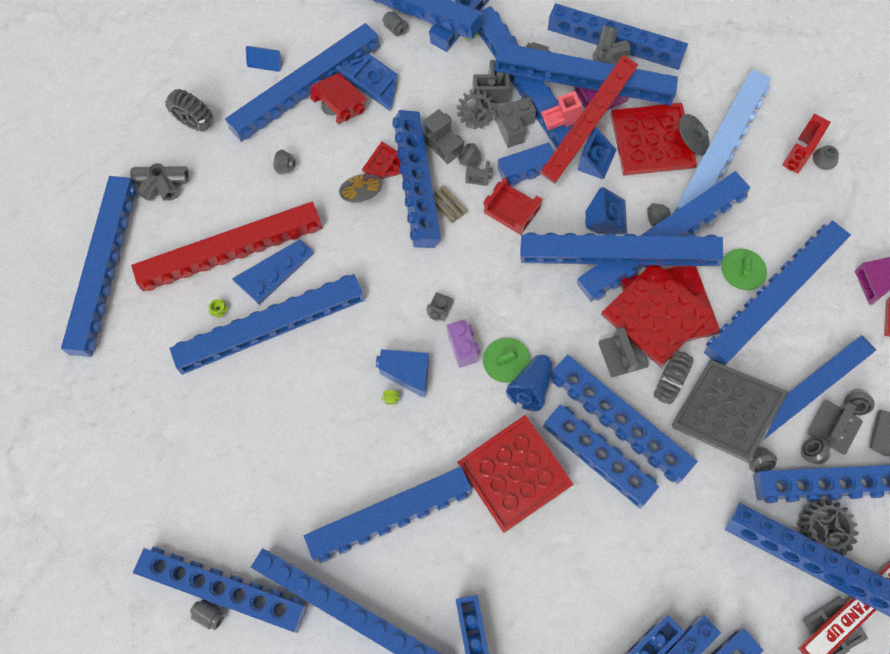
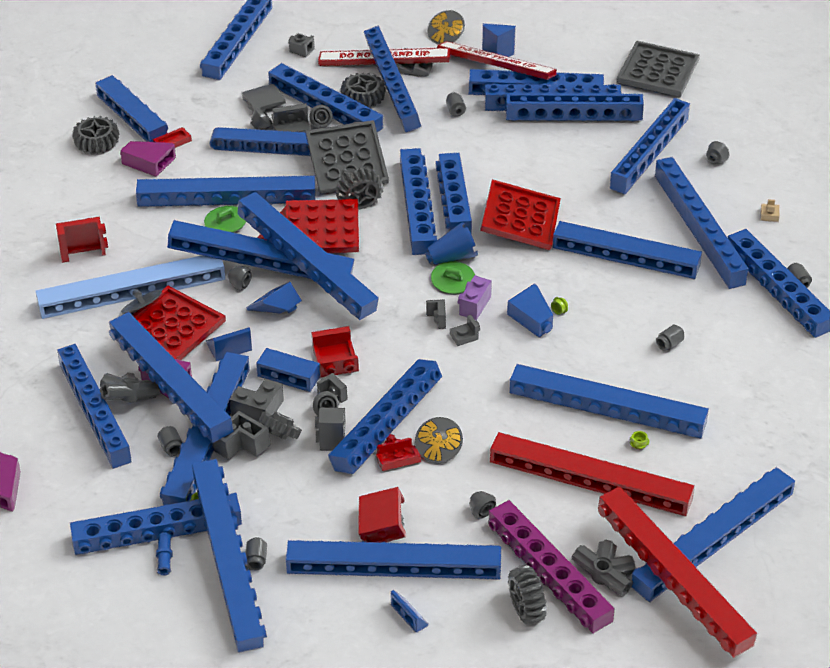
camera: 140 degrees left, 25 degrees down
(97, 191) = (677, 572): none -> red brick
(185, 150) = (551, 567): none -> magenta brick
(269, 434) = (670, 337): none -> dark grey brick
(270, 273) = (578, 437): blue wing -> none
(371, 78) = (333, 518): blue wing -> none
(438, 193) = (380, 380): dark tan tile -> none
(474, 306) = (437, 309): none -> dark grey bracket
(565, 113) = (221, 359): coral brick -> none
(589, 119) = (211, 342): red tile -> none
(621, 354) = (373, 227): dark grey bracket -> none
(726, 589) = (455, 104): none -> dark grey brick

